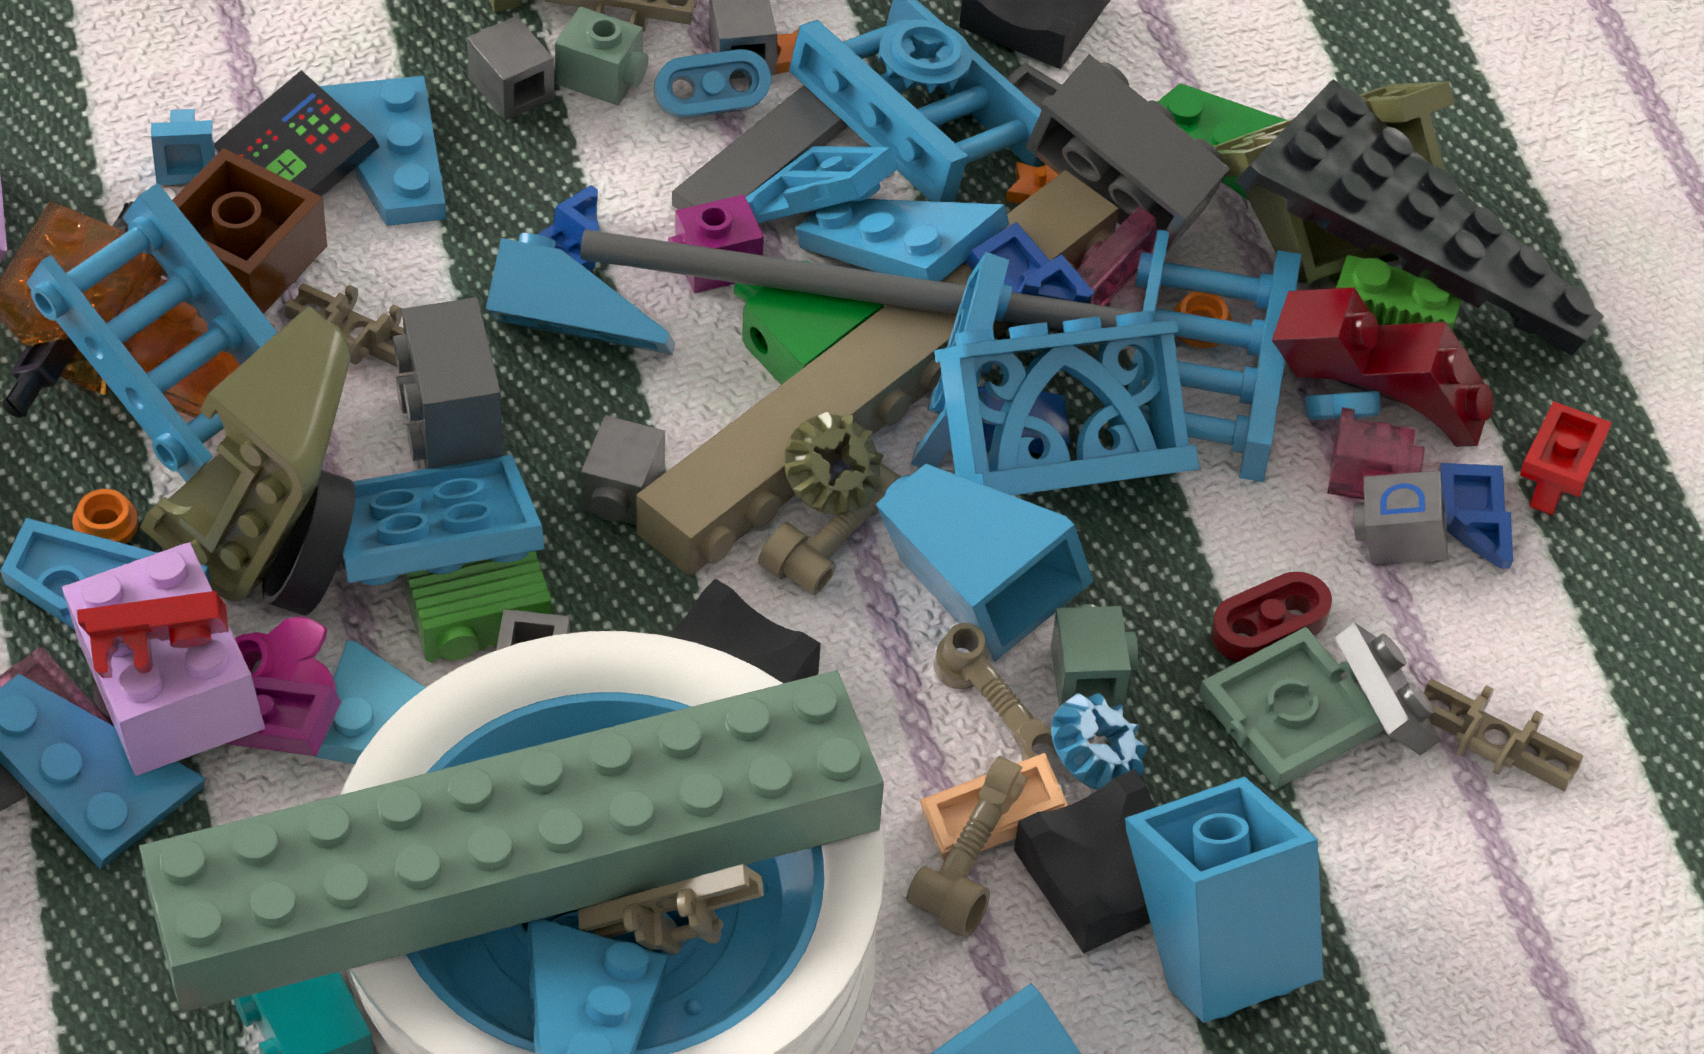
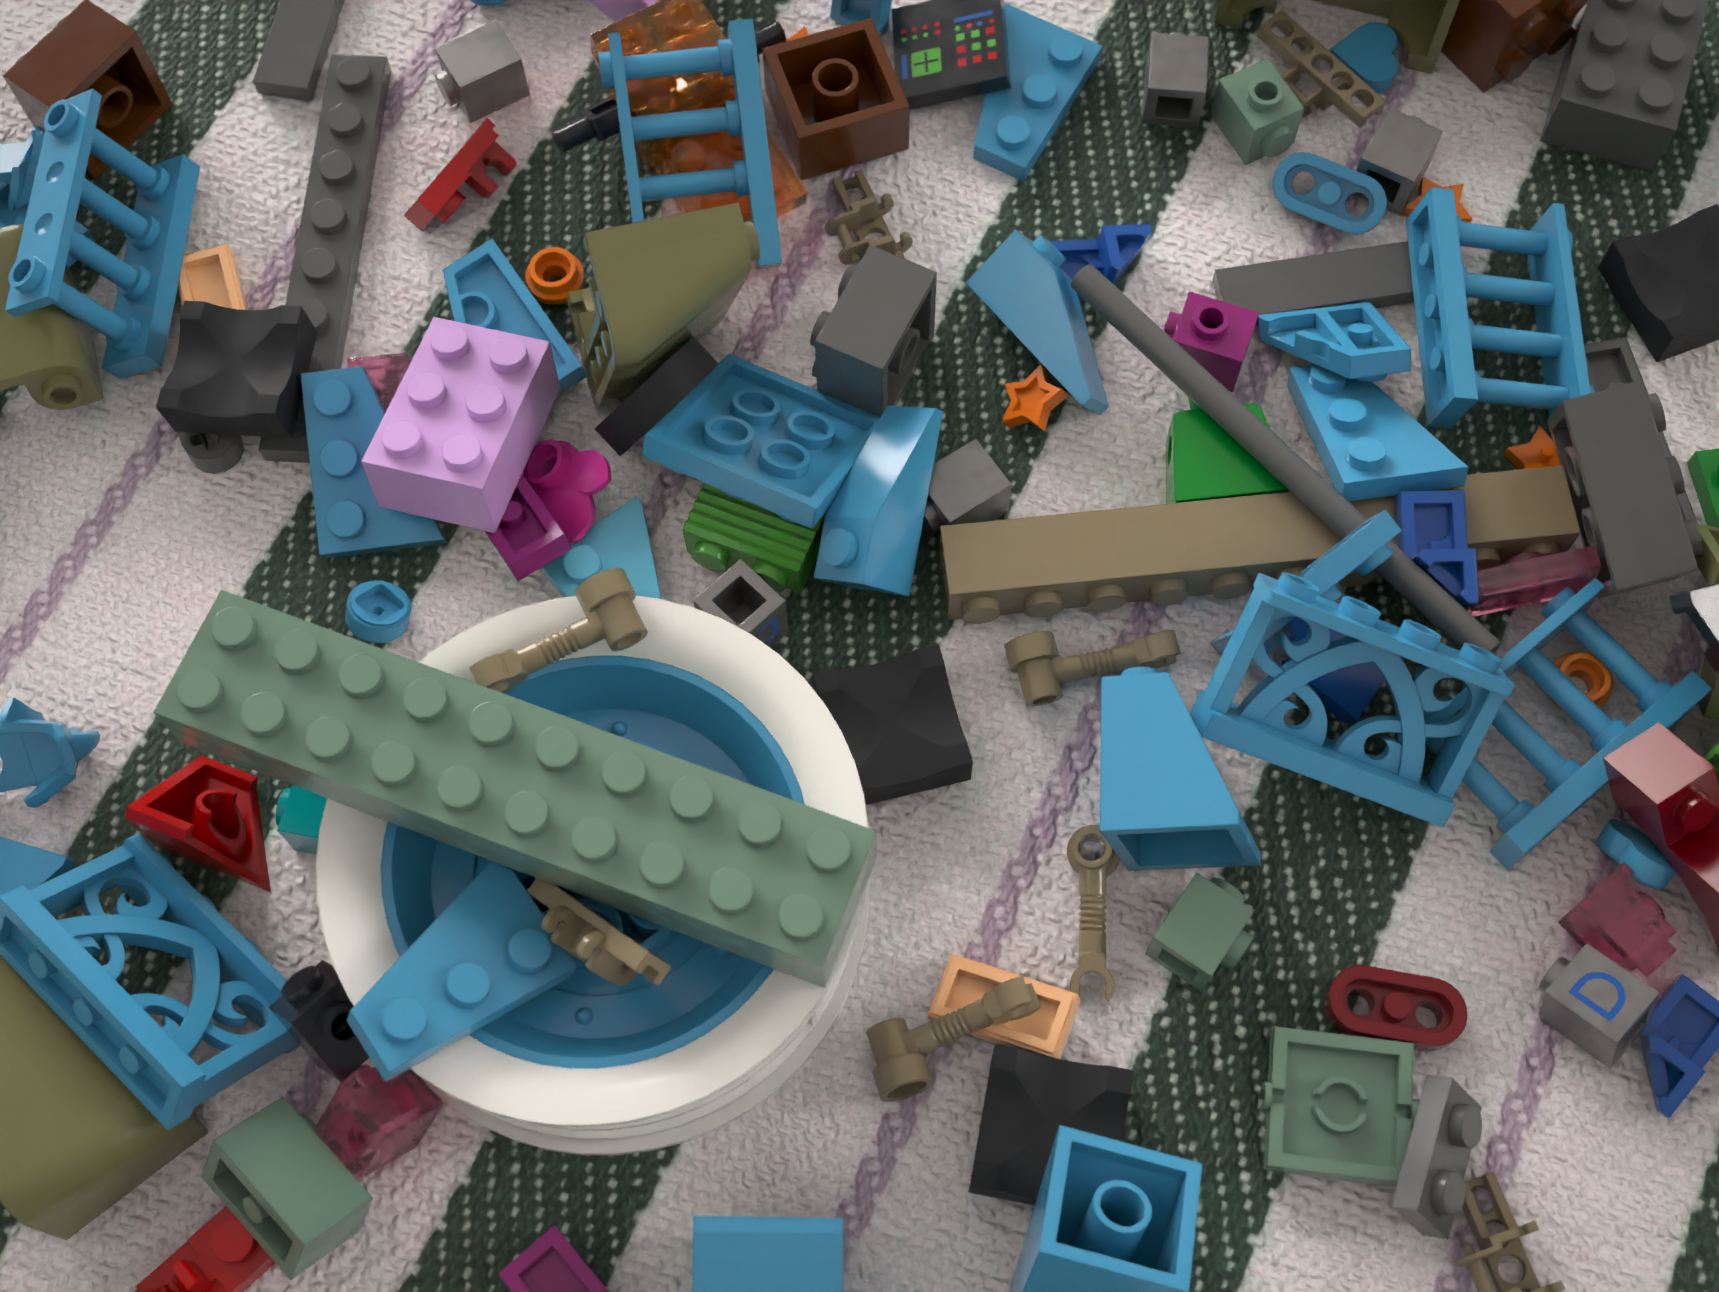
camera: 45 degrees right, 15 degrees up
(180, 619) = (417, 394): red plate -> none
(464, 683) = (609, 616): none -> dark tan brick
(577, 506) = (880, 509): none -> dark azure slope
(613, 370) = (1032, 399): none -> orange piece
(810, 474) = (1129, 576): olive gear -> none
(926, 40) = (1539, 265): dark azure gear -> none
(1096, 764) = (1124, 989): dark azure gear -> none

